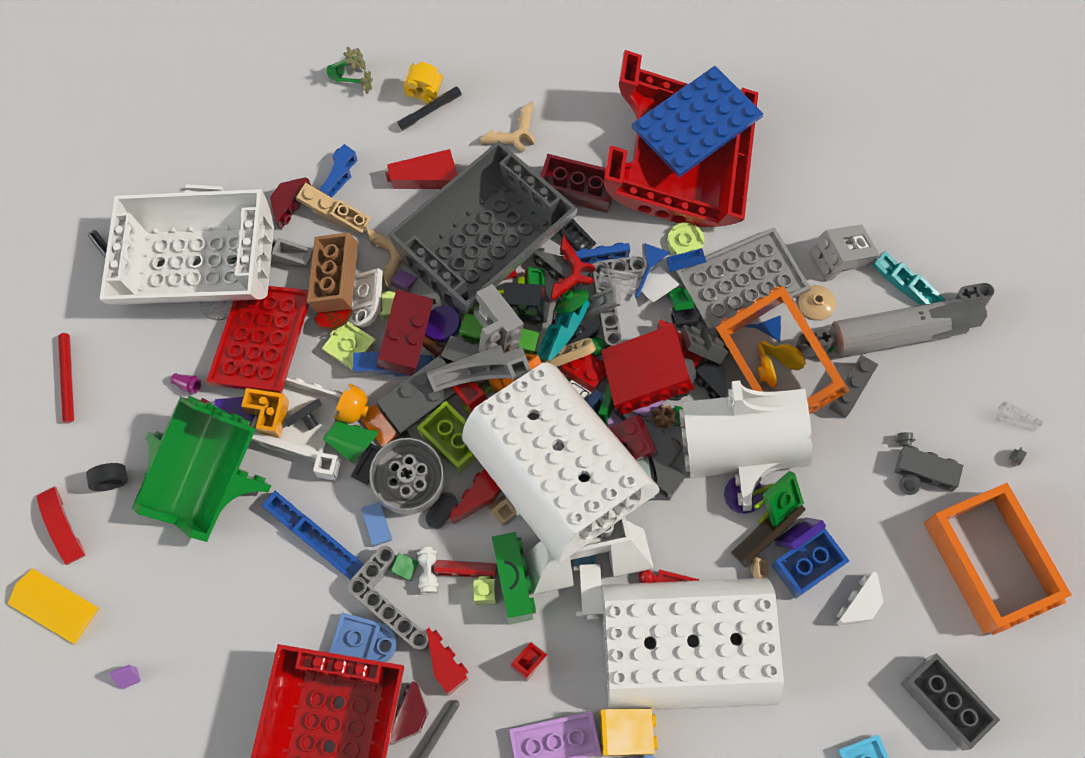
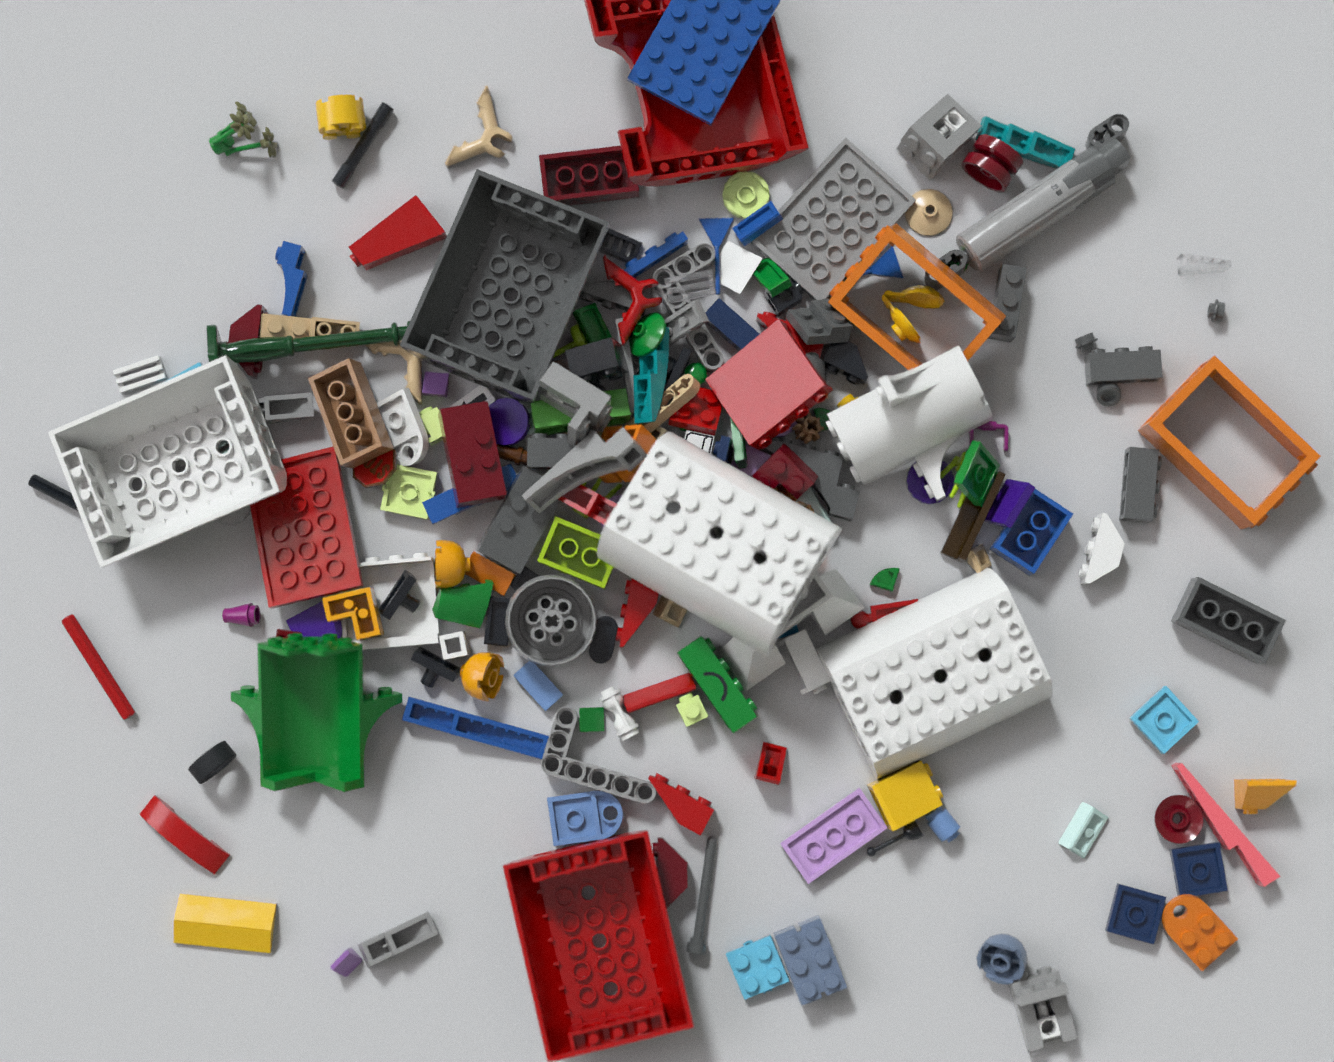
camera: 25 degrees left, 15 degrees up
(174, 675) = (397, 939): none -> light grey slope
(302, 207) = (278, 347): none -> dark green piece
(305, 477) = (434, 667): none -> black tile
(338, 497) = (481, 675): none -> light orange cylinder
(634, 318) = (730, 325): none -> dark blue brick
(679, 554) = (885, 579): none -> green tile
(809, 473) = (992, 426): none -> magenta piece
(878, 282) = (992, 163): none -> dark red wheel
(911, 563) = (1140, 485): none -> dark grey brick

